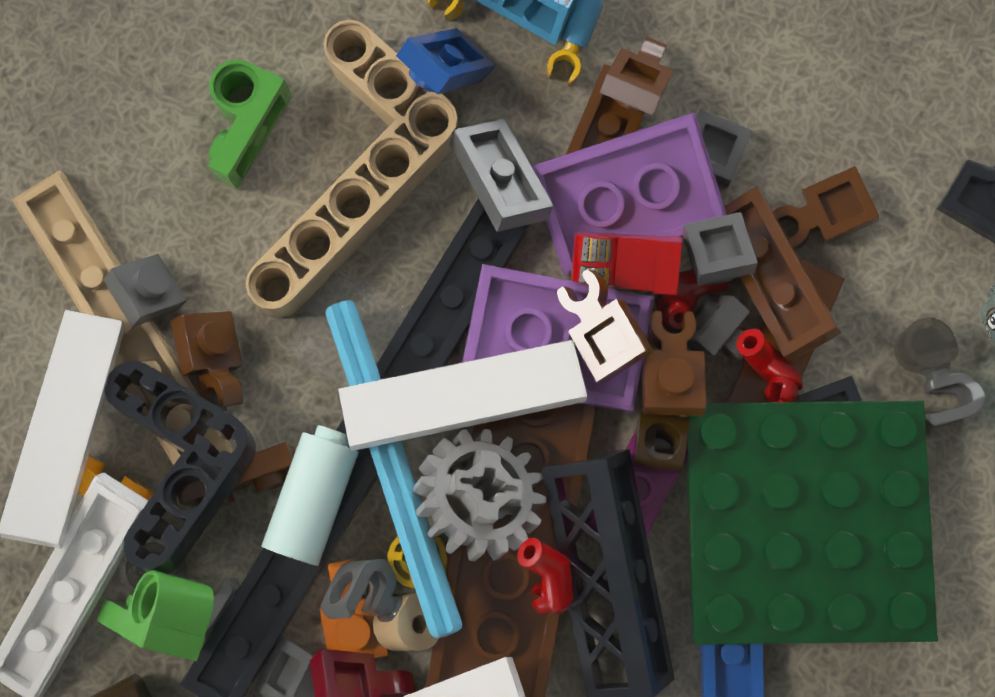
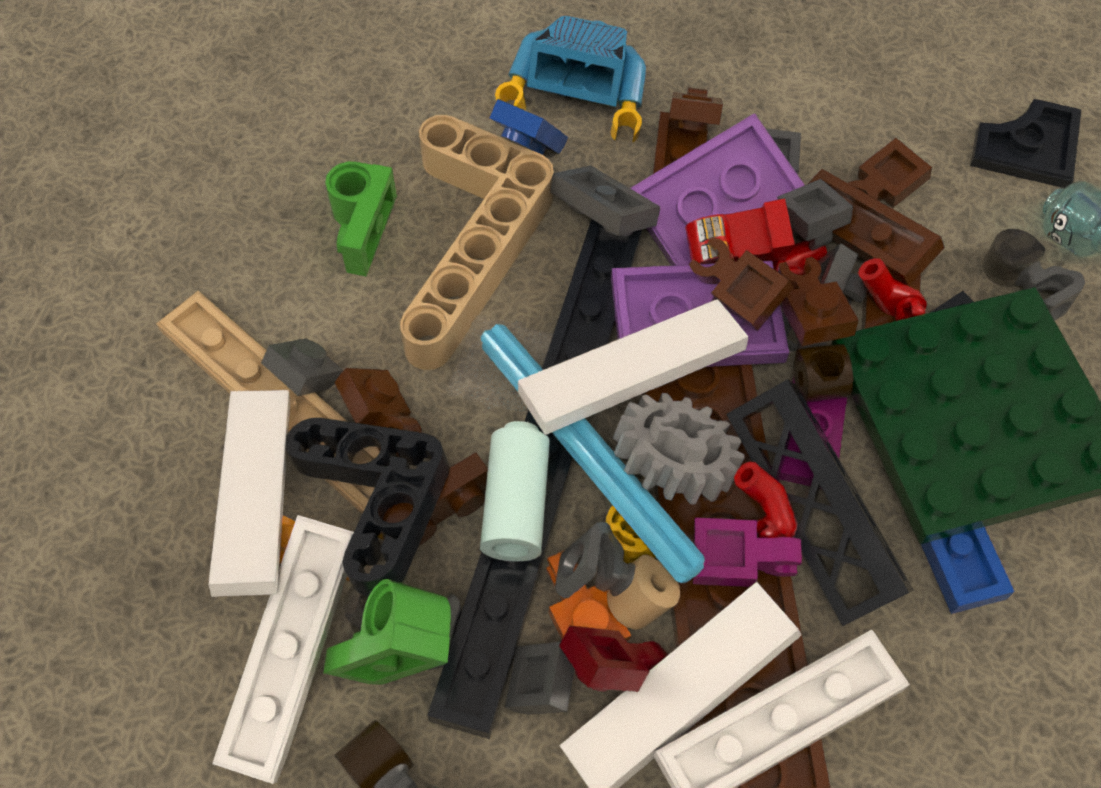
camera: 20 degrees left, 20 degrees down
(498, 612) = (736, 553): none -> magenta plate

